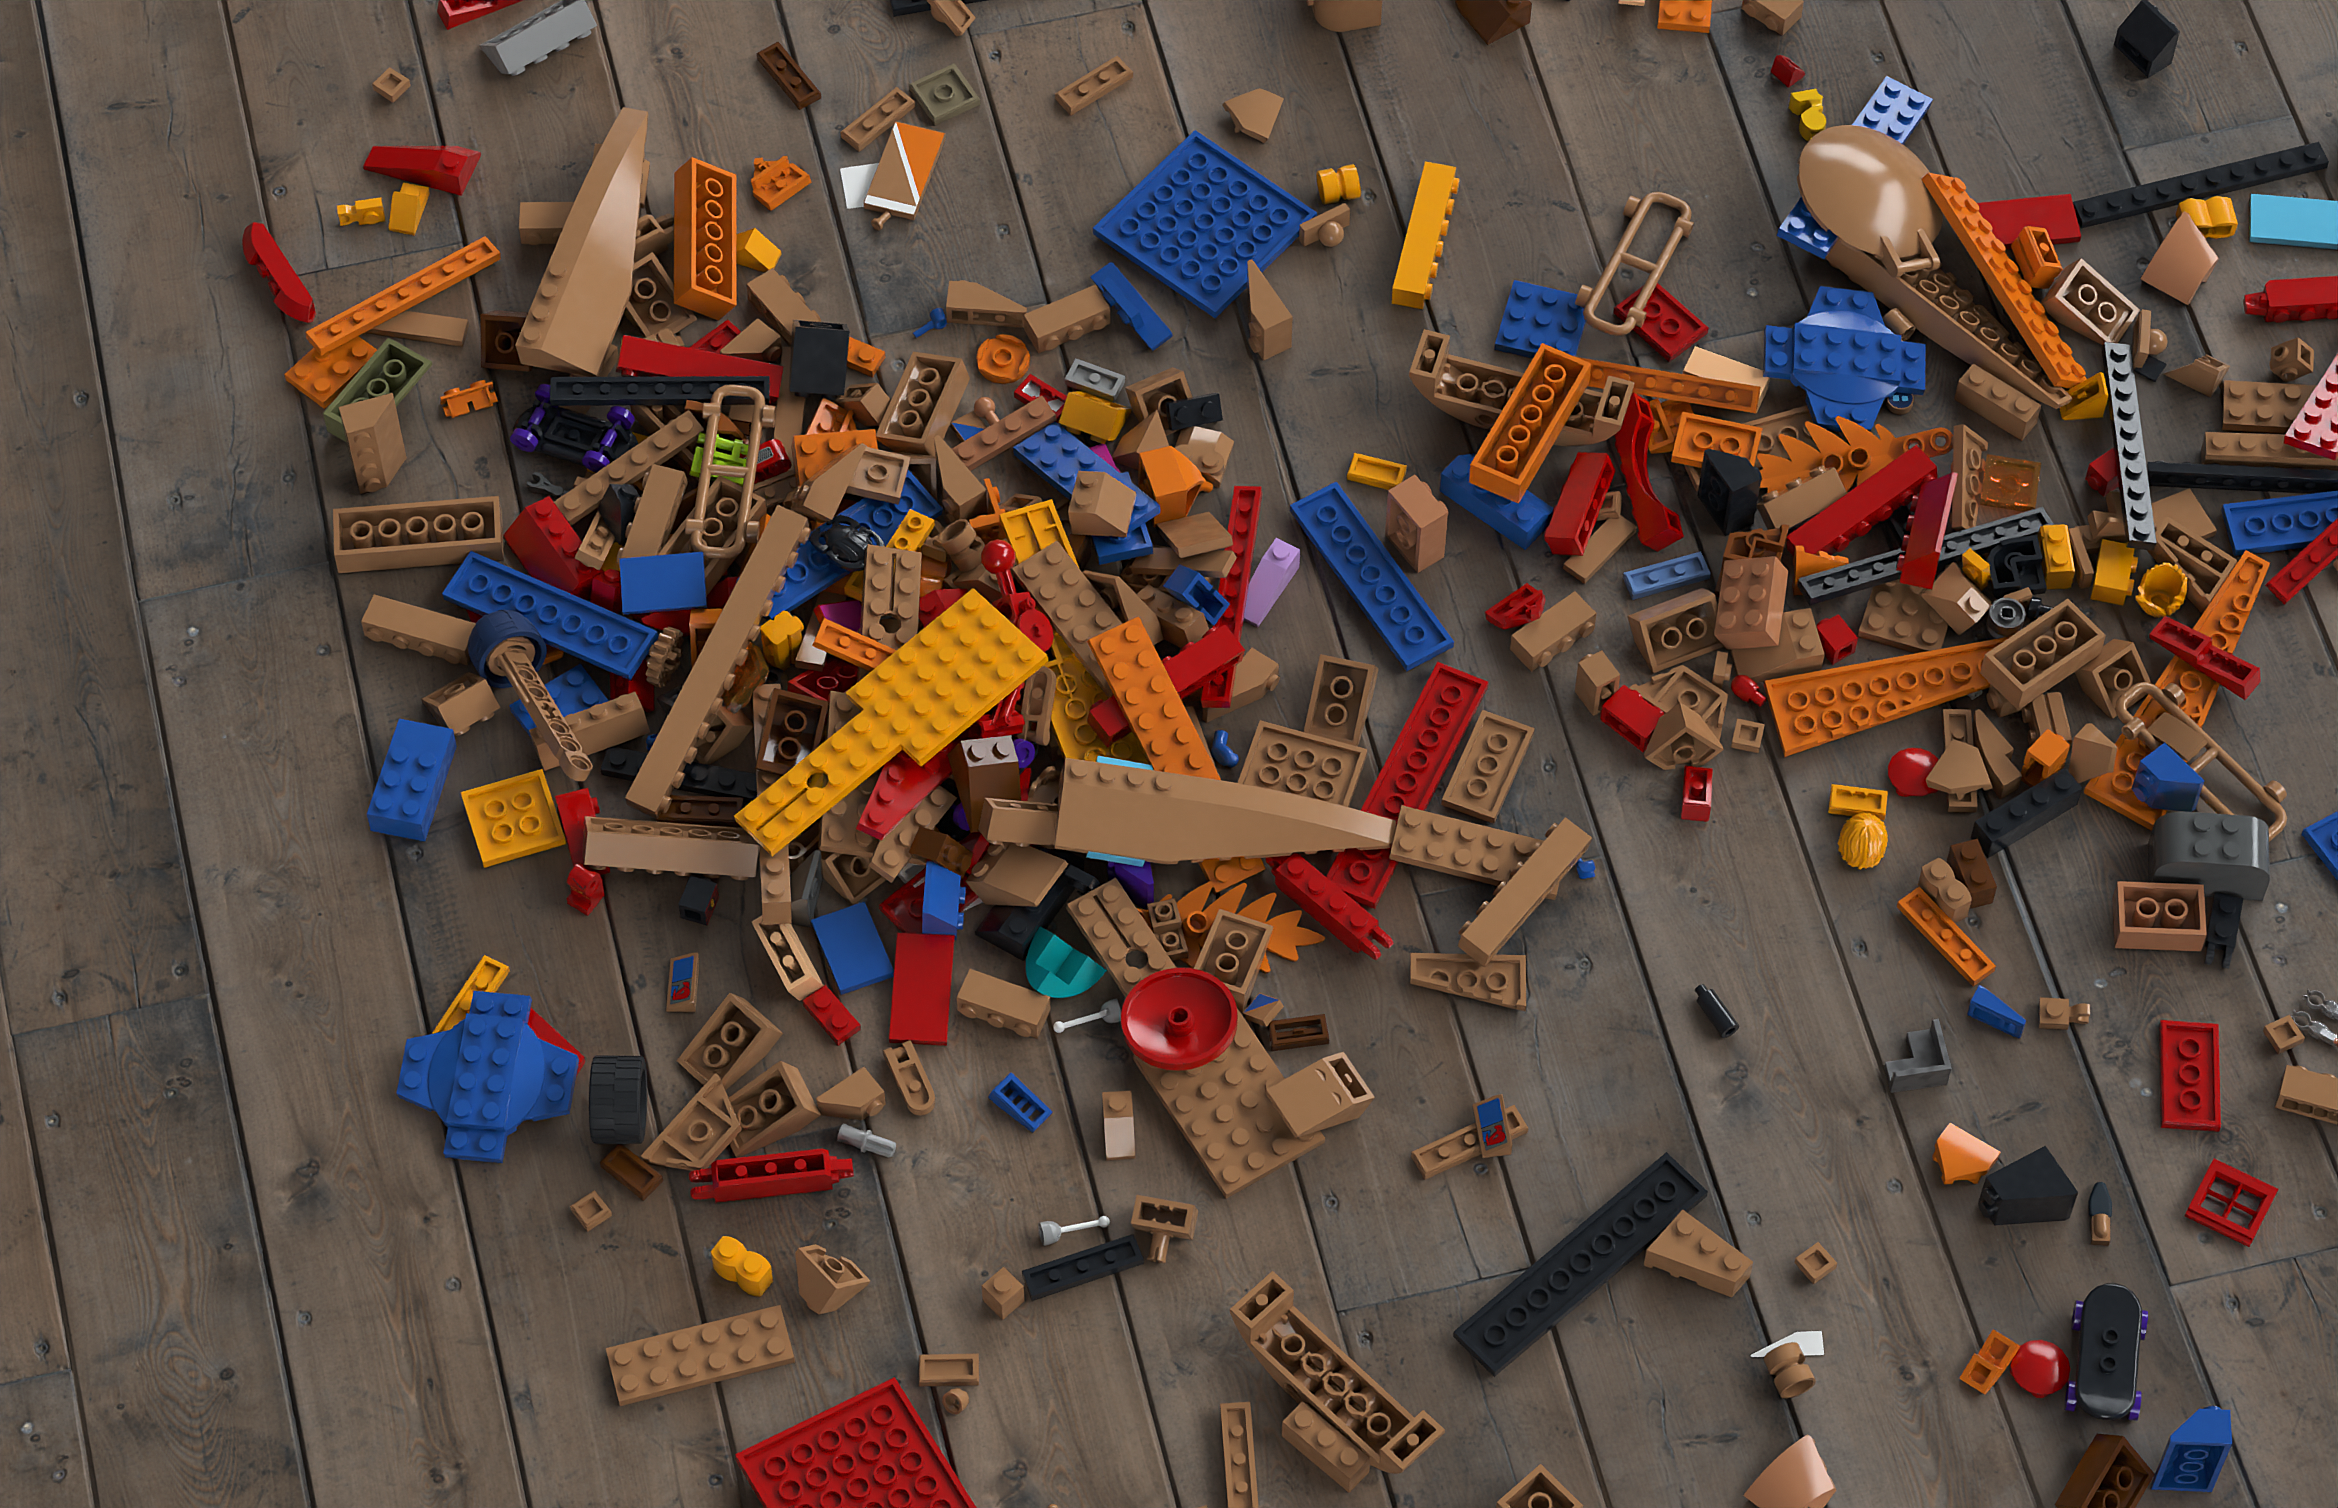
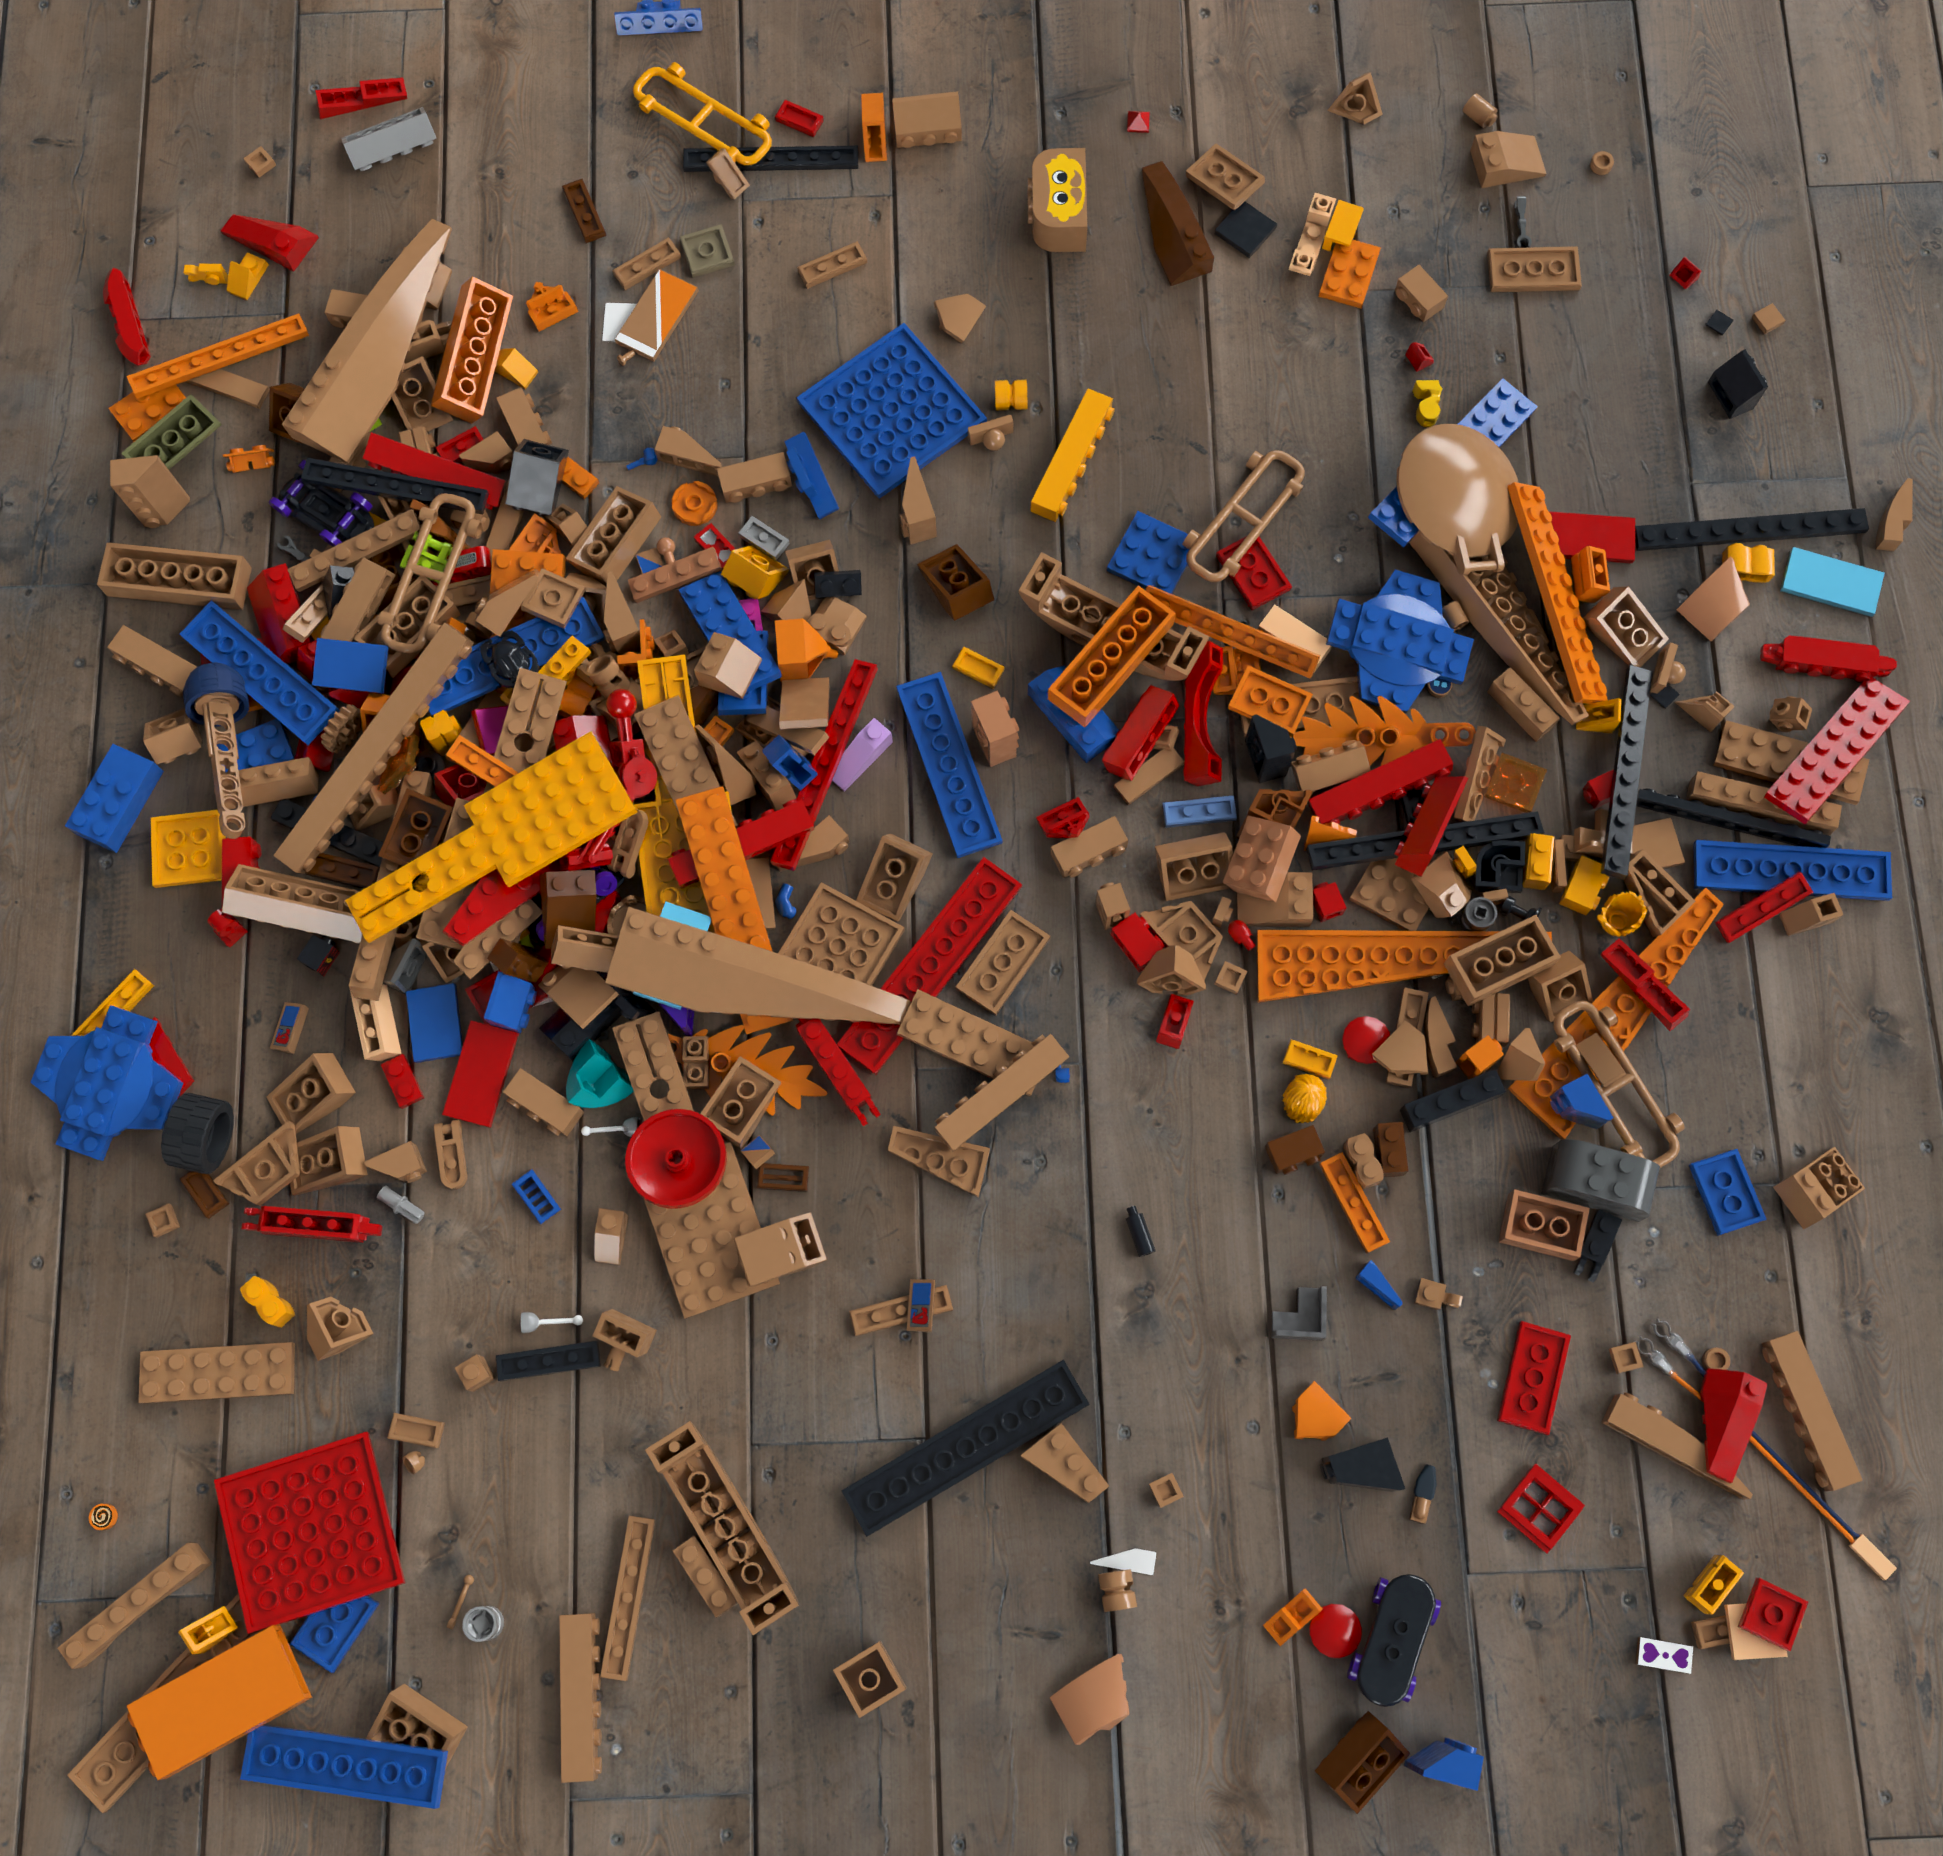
camera: 15 degrees right, 15 degrees up
(1329, 387) = (956, 582): none -> reddish brown slope
(1866, 895) = (1294, 1150): none -> reddish brown brick

